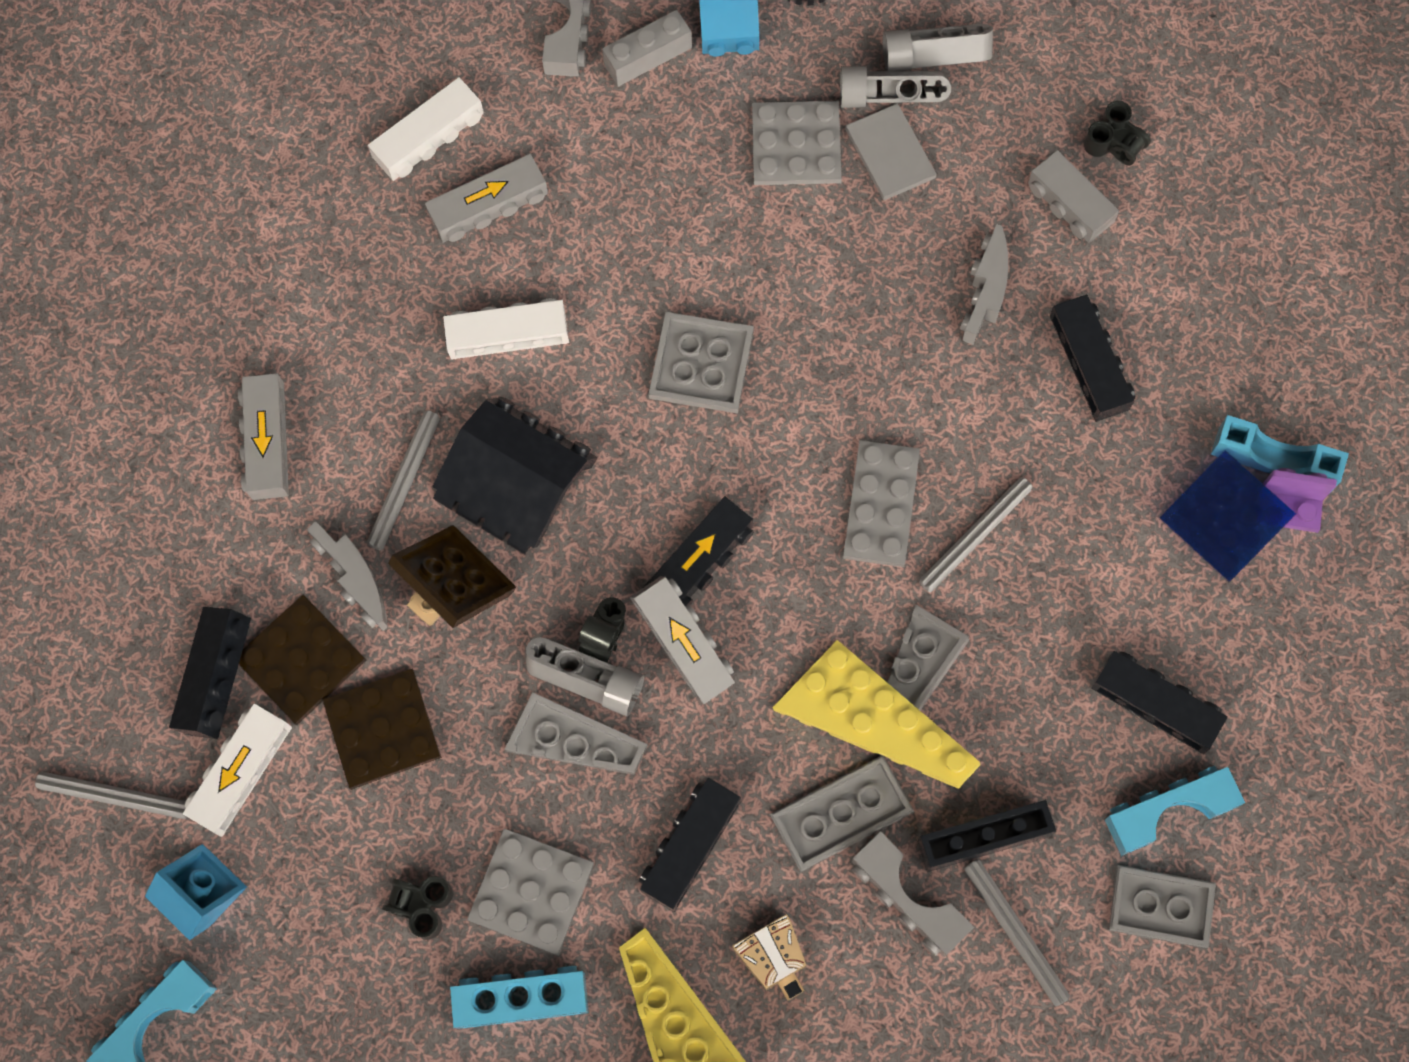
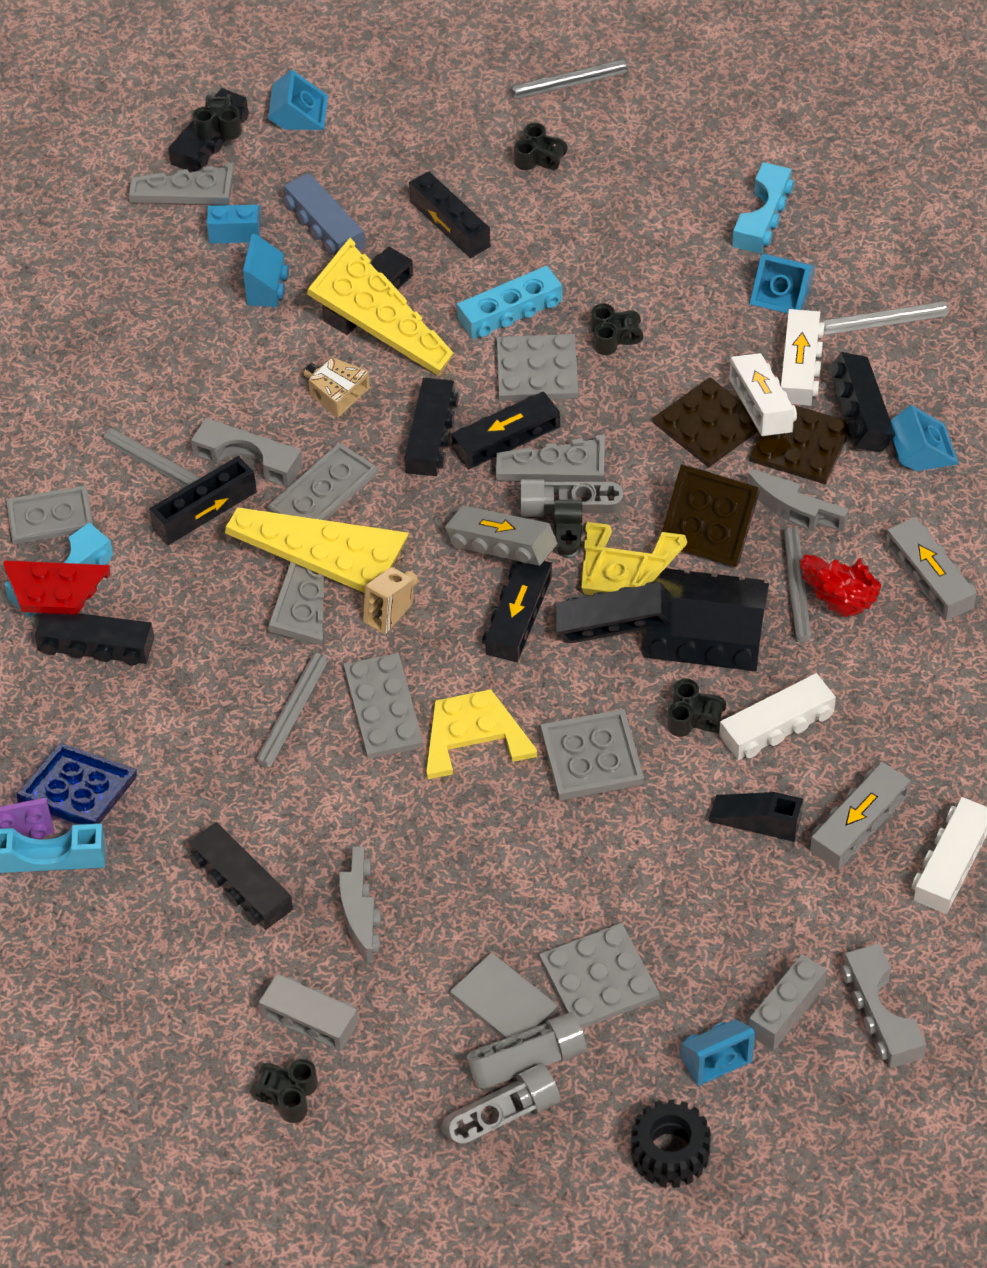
camera: 155 degrees right, 20 degrees down
(177, 596) = (922, 441): none -> dark azure slope
(311, 719) = (762, 394): none -> white brick
(364, 445) = (841, 587): none -> red hair
(577, 559) = (613, 568): none -> light yellow wing
(578, 233) = (760, 813): none -> black slope
(578, 368) = (693, 709): none -> pearl dark grey piece
(608, 803) = (505, 430): none -> black brick
(611, 488) = (613, 612): none -> black brick
(800, 449) = (471, 721): none -> light yellow wing
(840, 615) = (390, 593): none -> tan torso
(1193, 770) = (54, 586): none -> red wing

